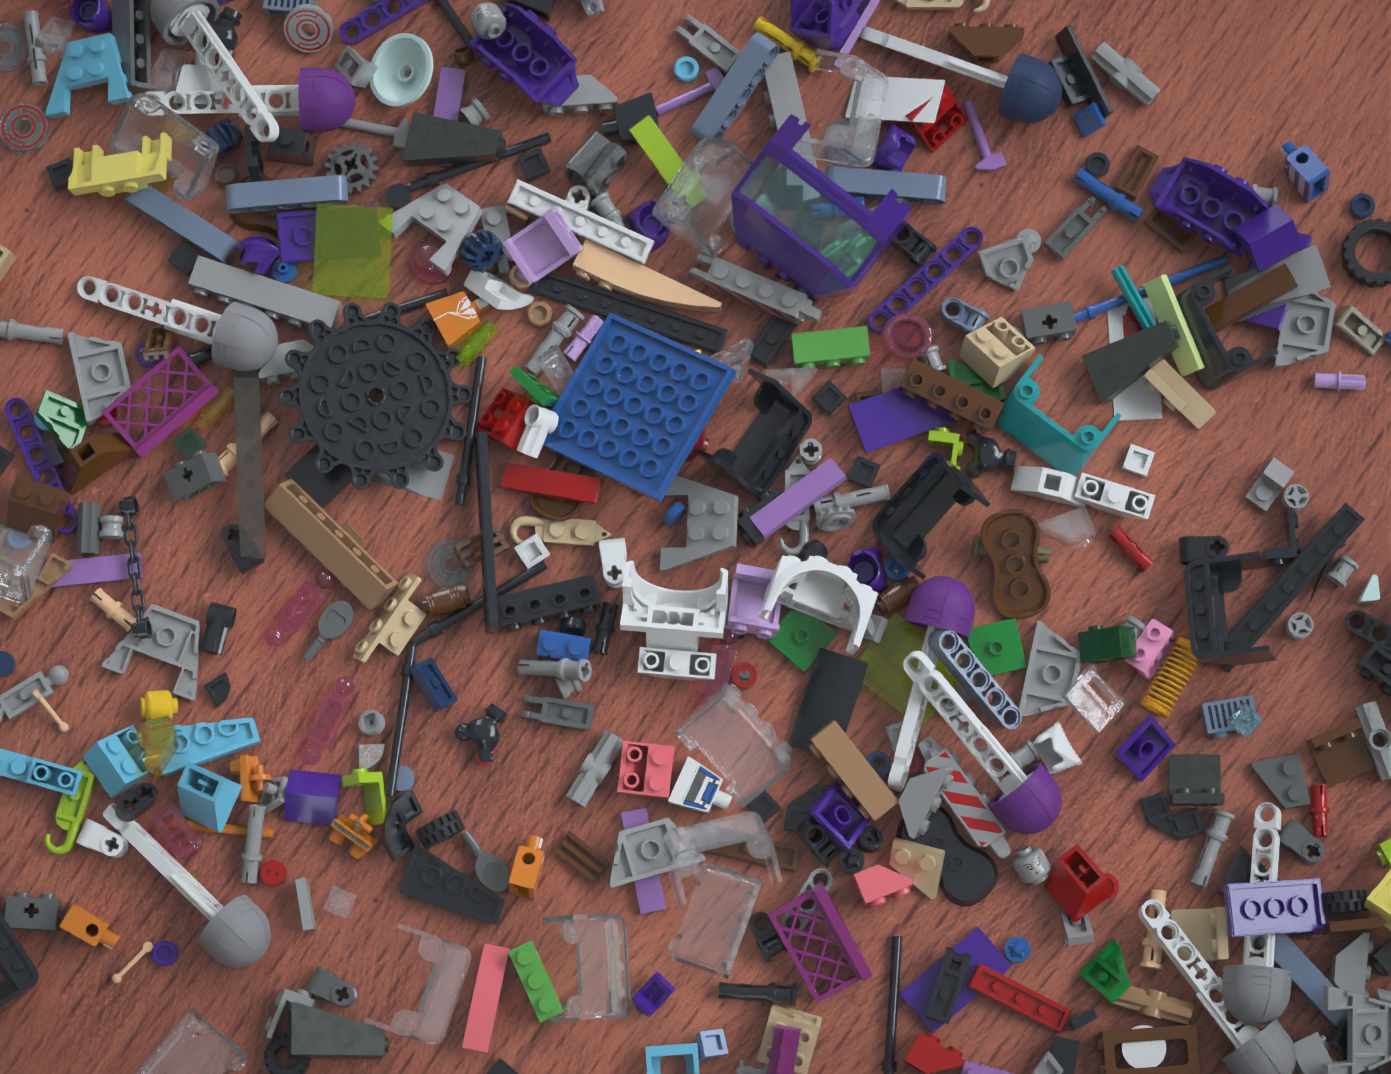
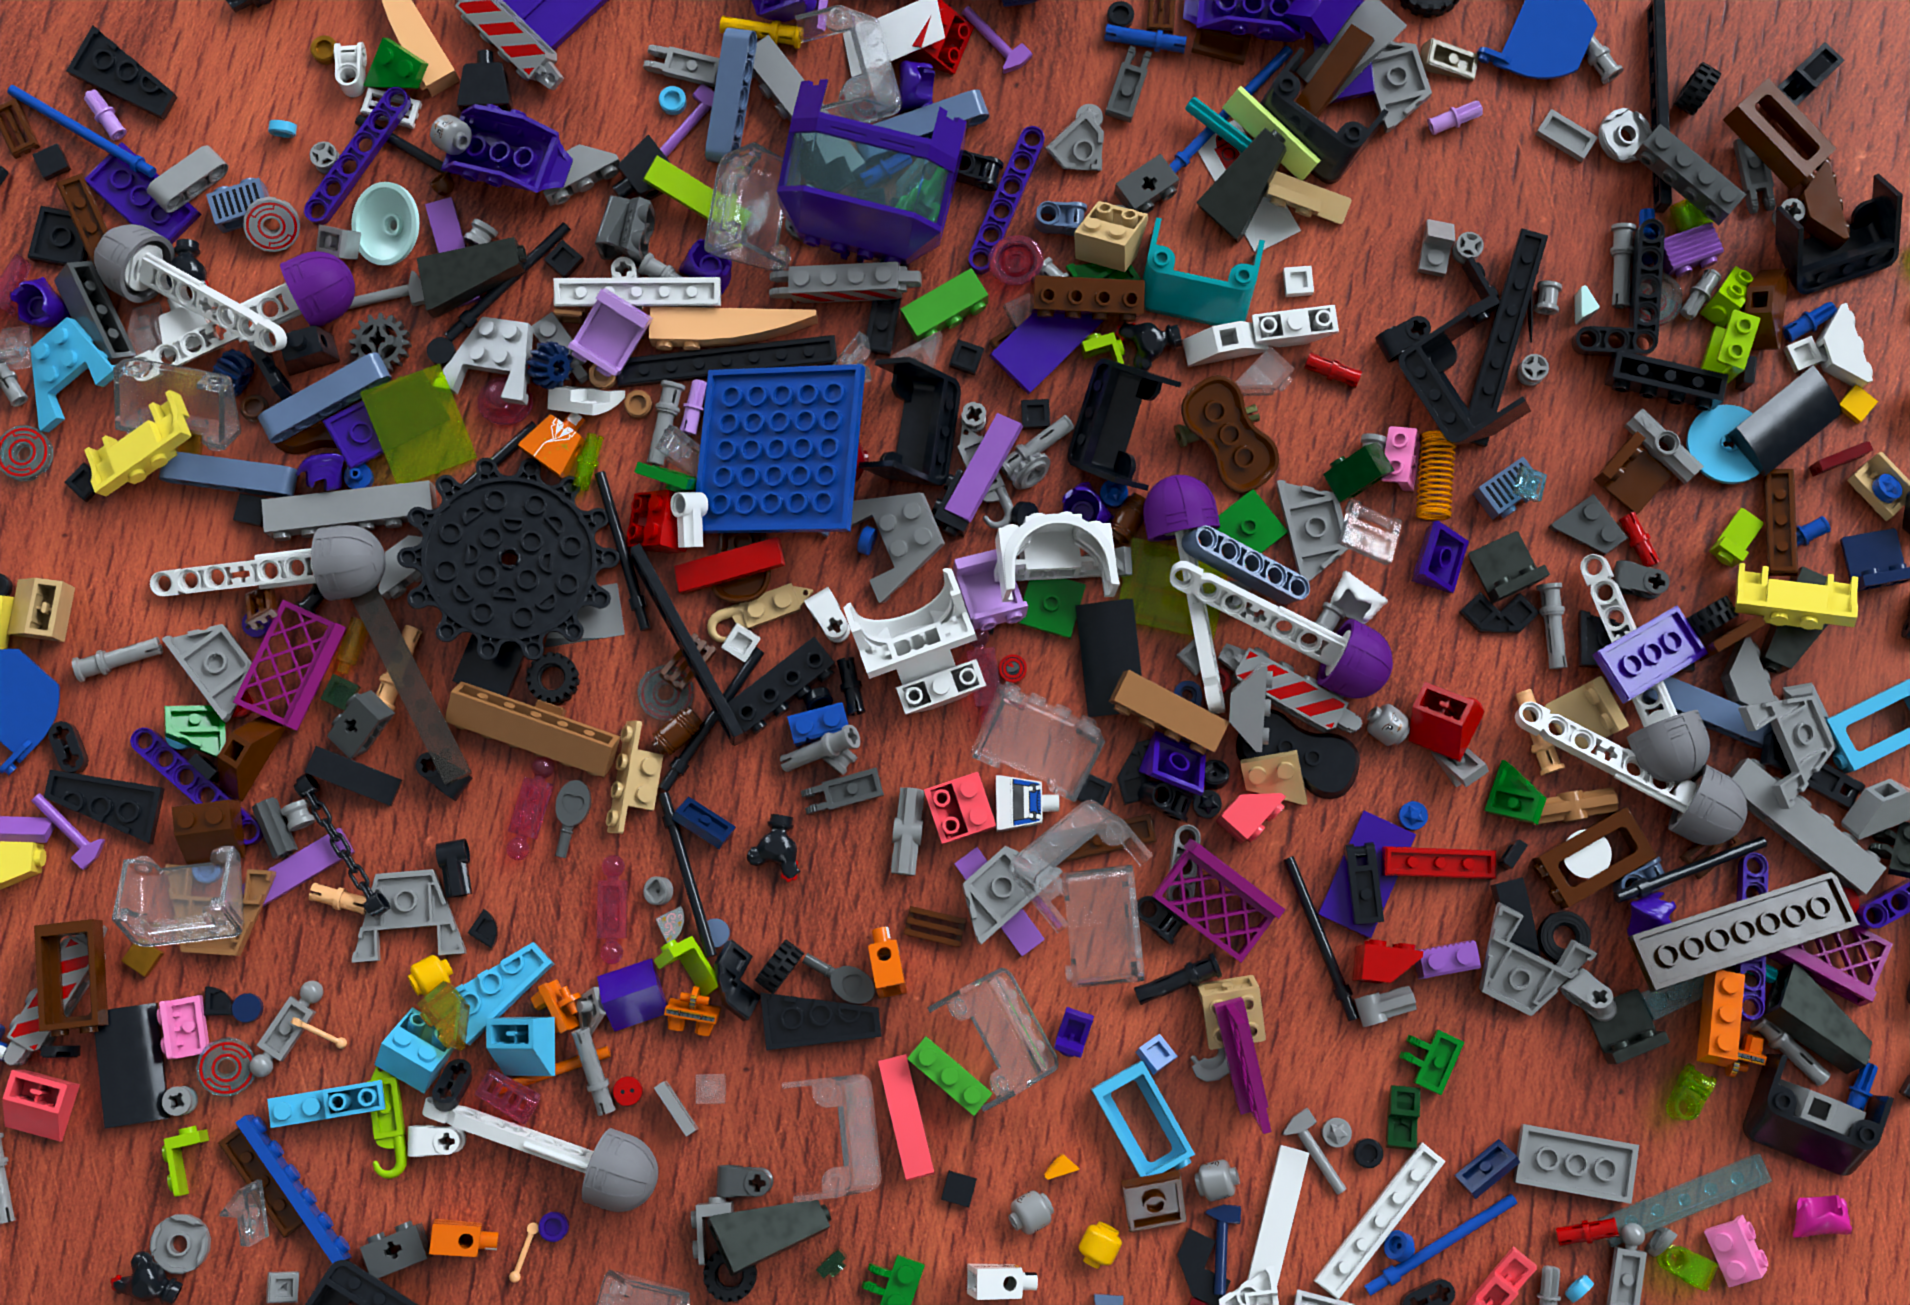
camera: 30 degrees left, 0 degrees up
(170, 516) = (353, 776): none -> black slope
(377, 521) = (570, 678): none -> black tyre

